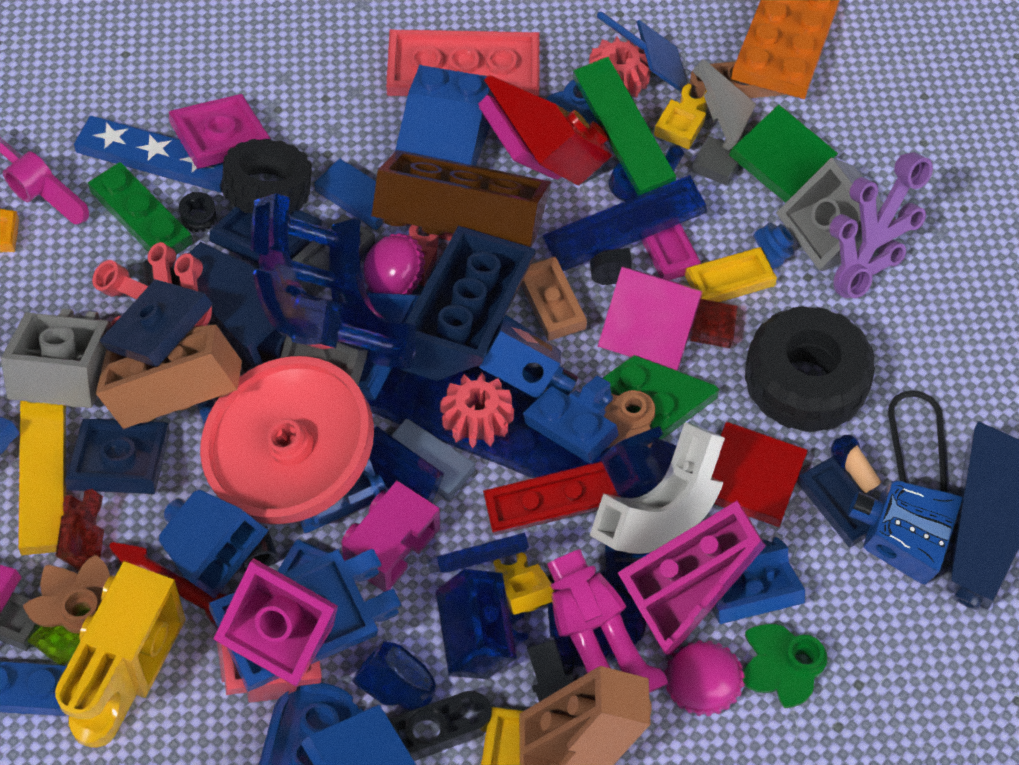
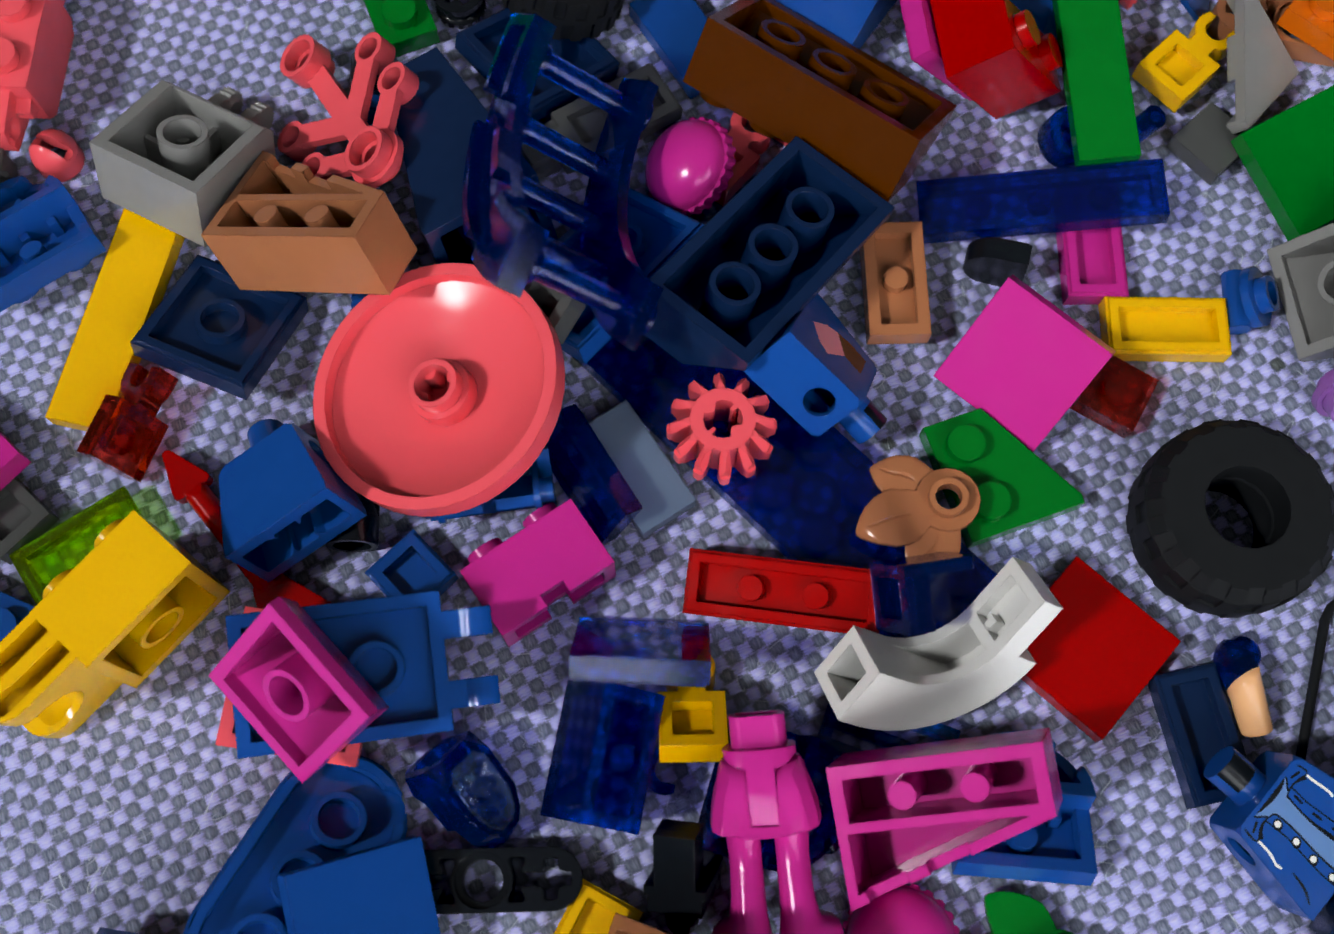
camera: 20 degrees right, 15 degrees up
(68, 594) = (75, 509): nougat plate -> none
(156, 322) = (313, 157): dark blue plate -> none
(575, 419) = (857, 489): blue hinge -> none

